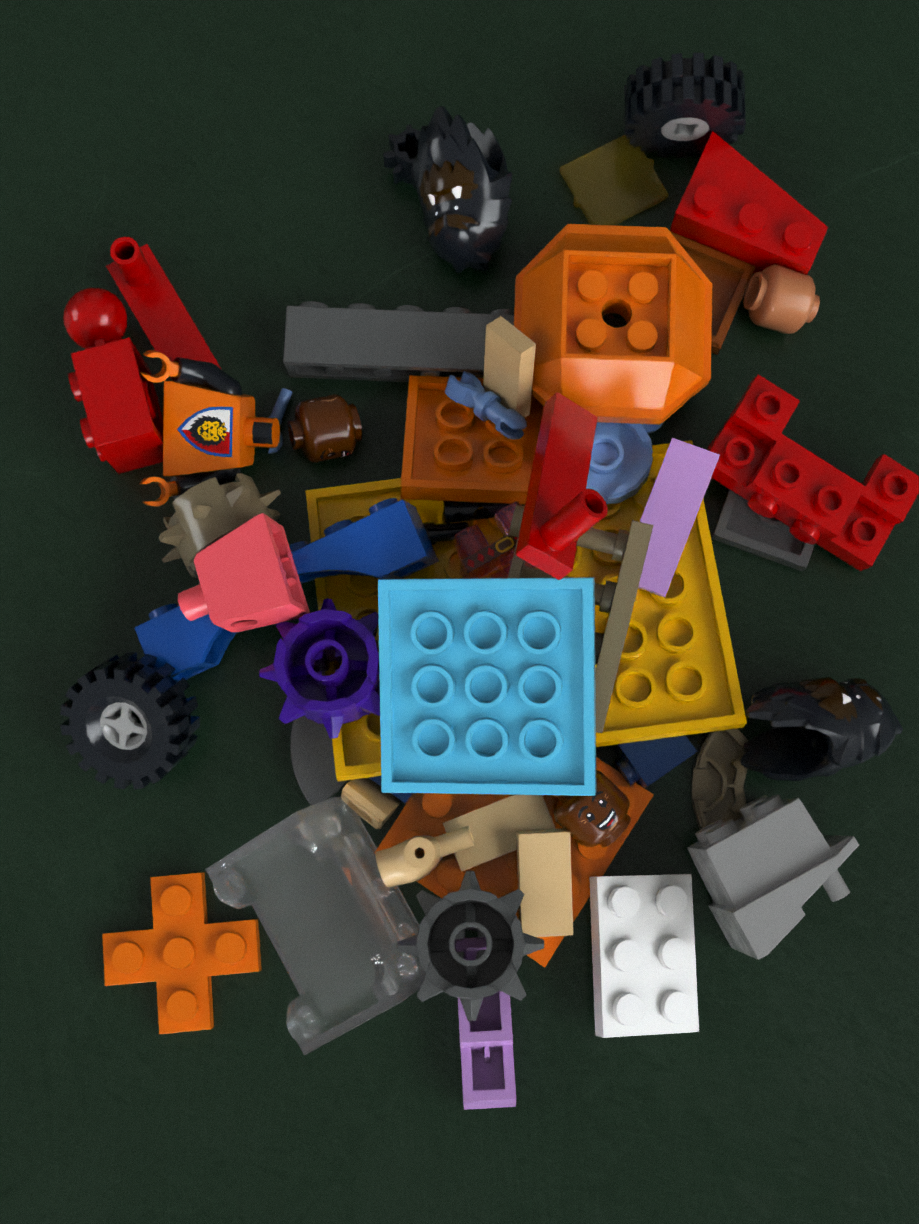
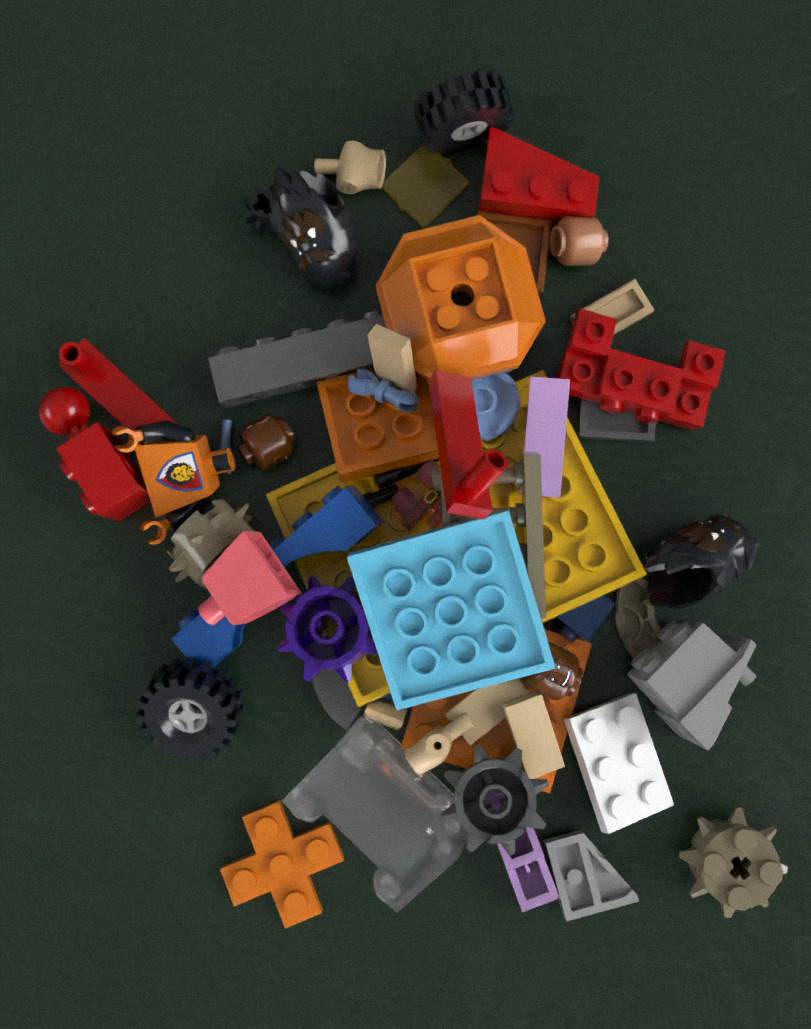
camera: 20 degrees left, 5 degrees up
(535, 139) = (356, 169): none -> tan piece
(557, 1088) = (584, 877): none -> light grey wing
(783, 1141) = (750, 879): none -> dark tan brick
(820, 395) = (625, 304): none -> tan tile

